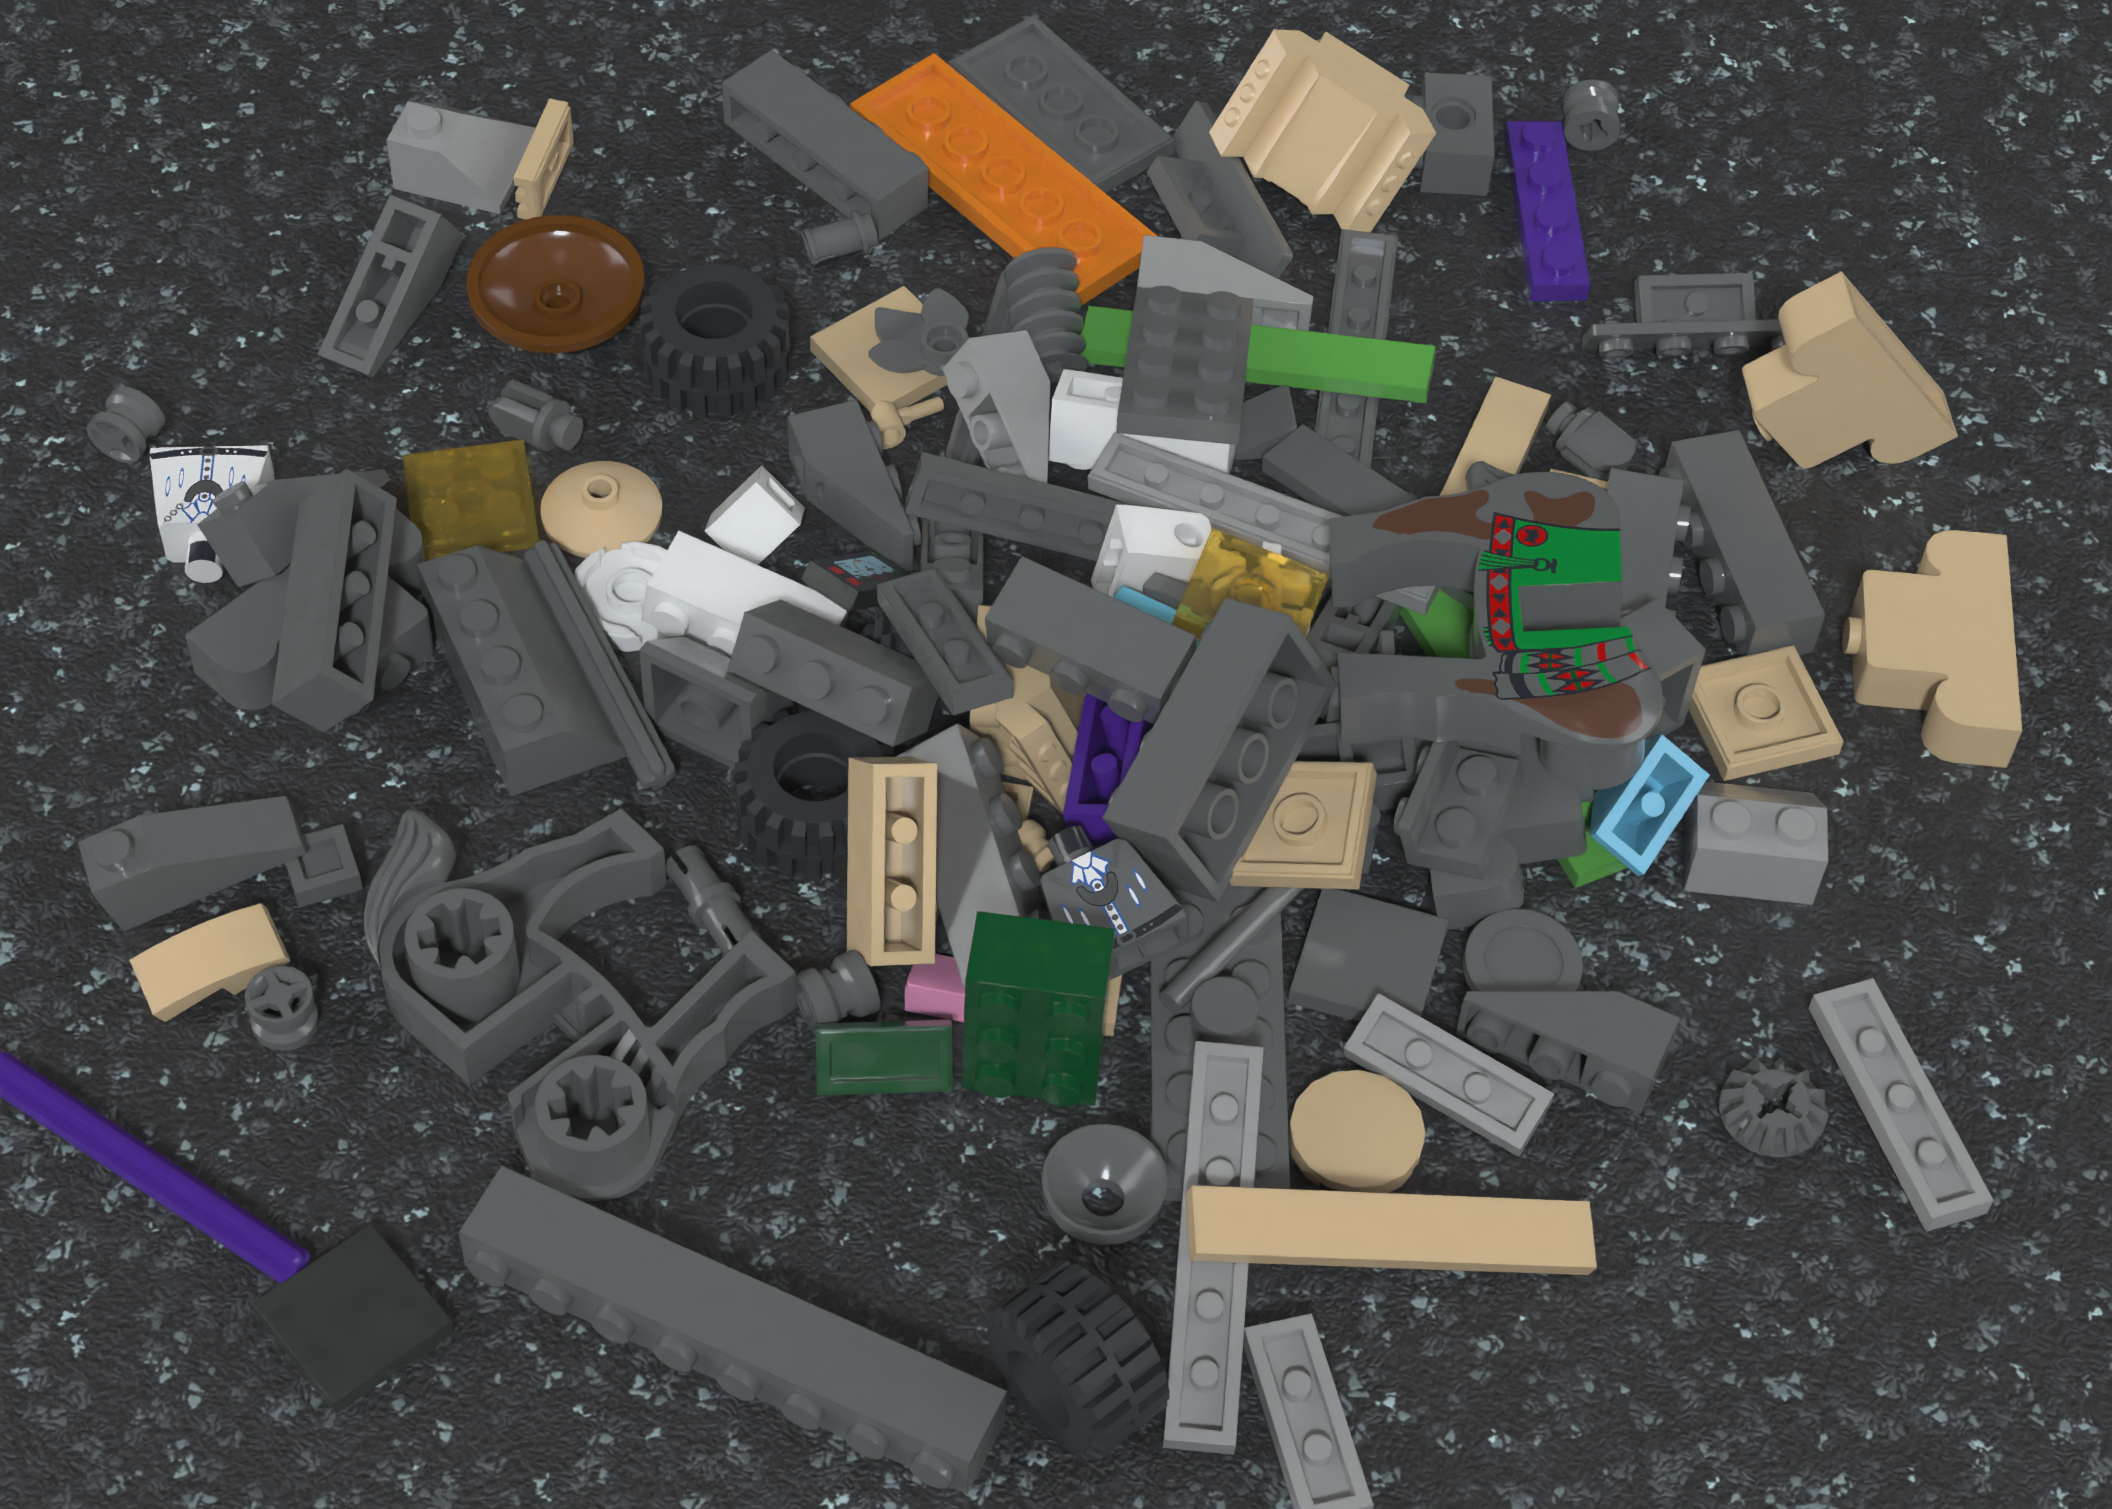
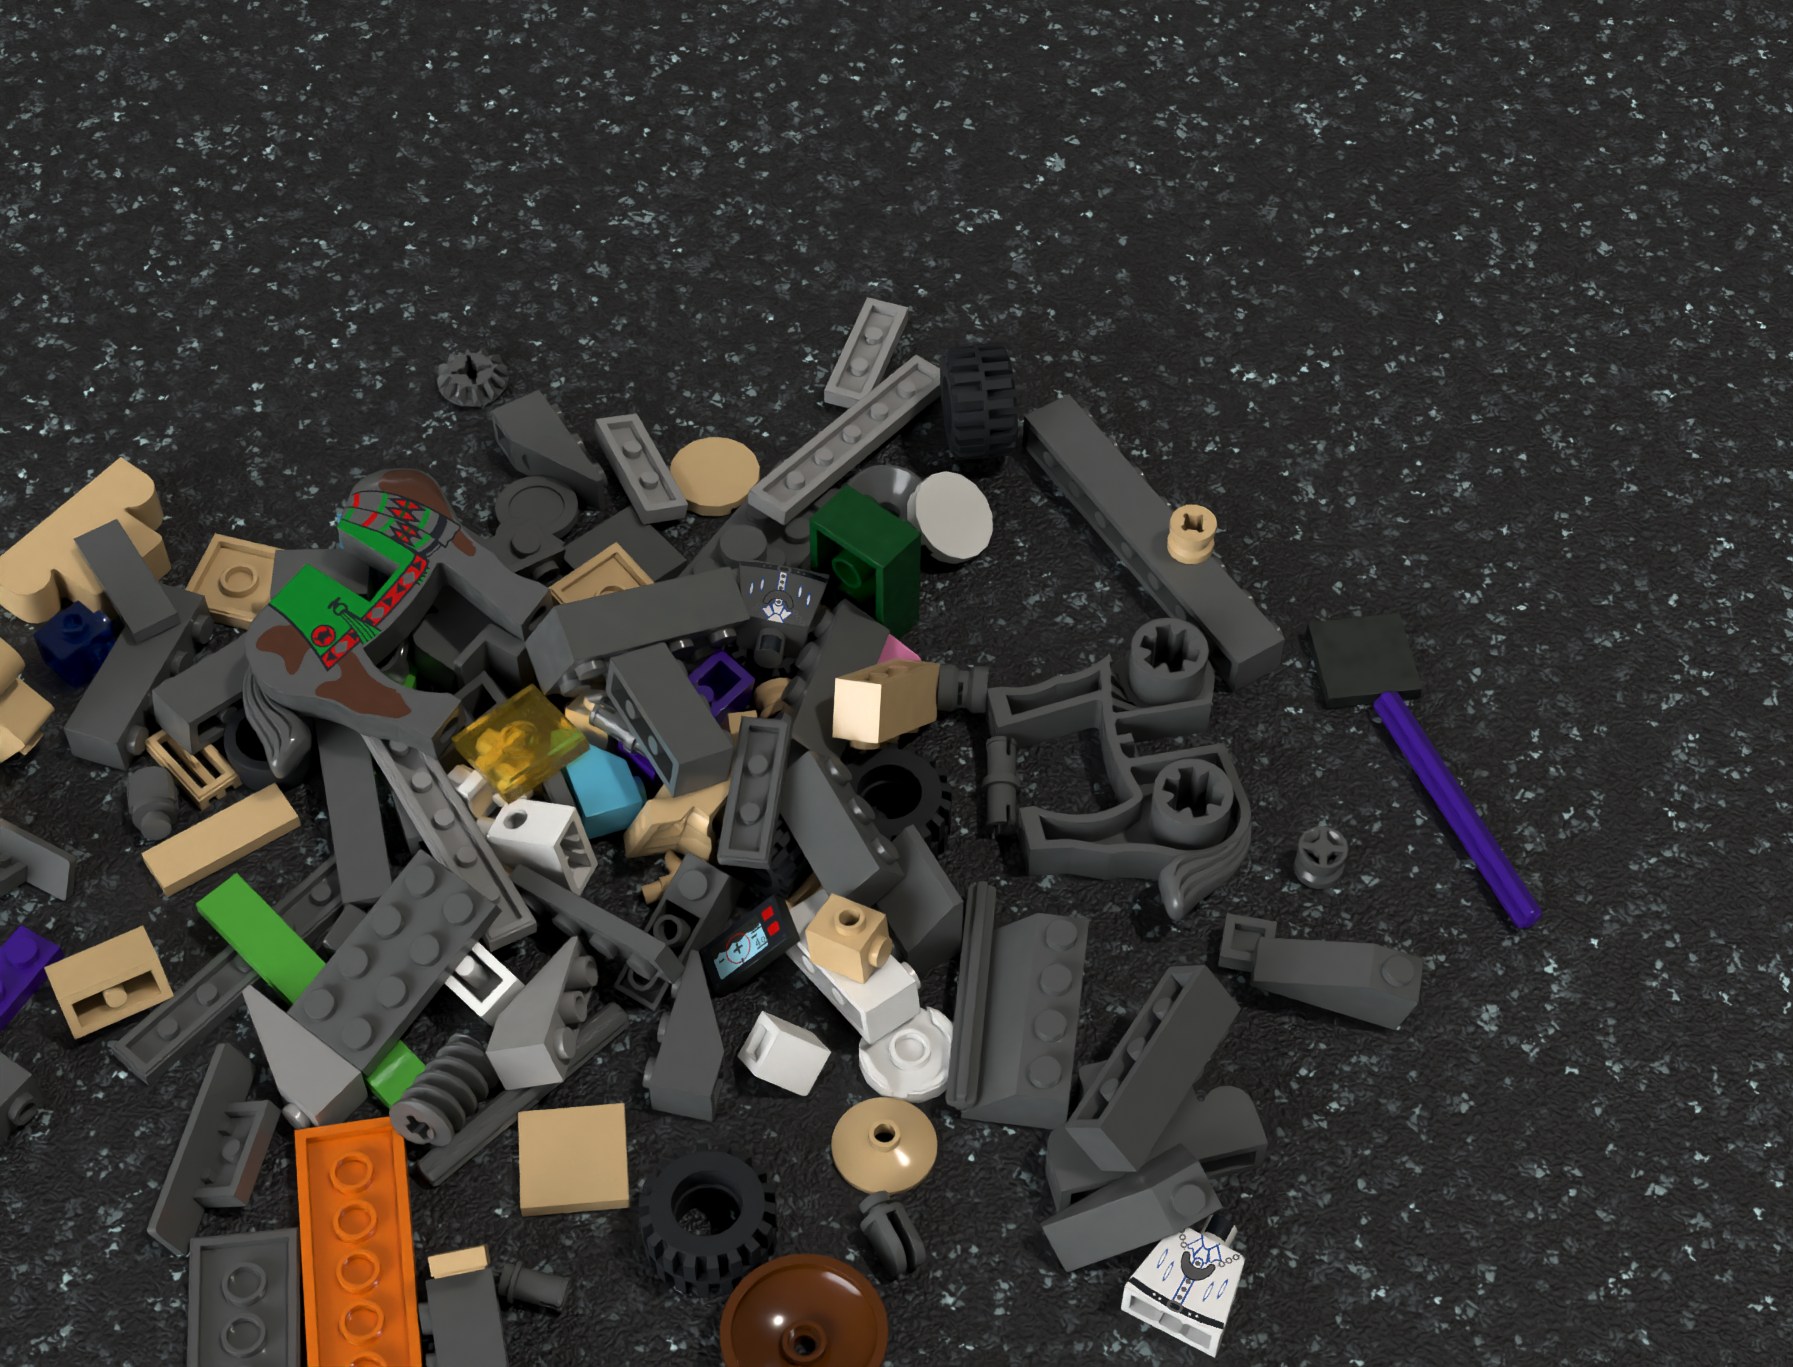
camera: 145 degrees left, 0 degrees up
(208, 958) = (1347, 906): tan slope -> none
(472, 498) = (980, 1199): clear yellow plate -> none
(661, 1308) = (1191, 534): none -> tan wheel
(738, 569) = (849, 938): none -> tan brick
(884, 1057) = (960, 637): dark green tile -> none
(892, 420) = (626, 1091): tan hand -> none
(911, 194) = (459, 1261): none -> tan tile
(920, 340) = (549, 1141): dark grey plate -> none
(1005, 1201) = (950, 517): none -> white tile
(1324, 127) = (94, 1123): tan slope -> none
(1389, 1230) = (752, 395): tan tile -> none
(1450, 266) = (109, 982): none -> tan brick
(1755, 843) = (313, 495): light grey slope -> none
(1834, 544) = (76, 642): none -> clear blue brick
(1844, 587) = (127, 581): none -> dark grey tile
(1900, 1105) = (405, 341): light grey plate -> none

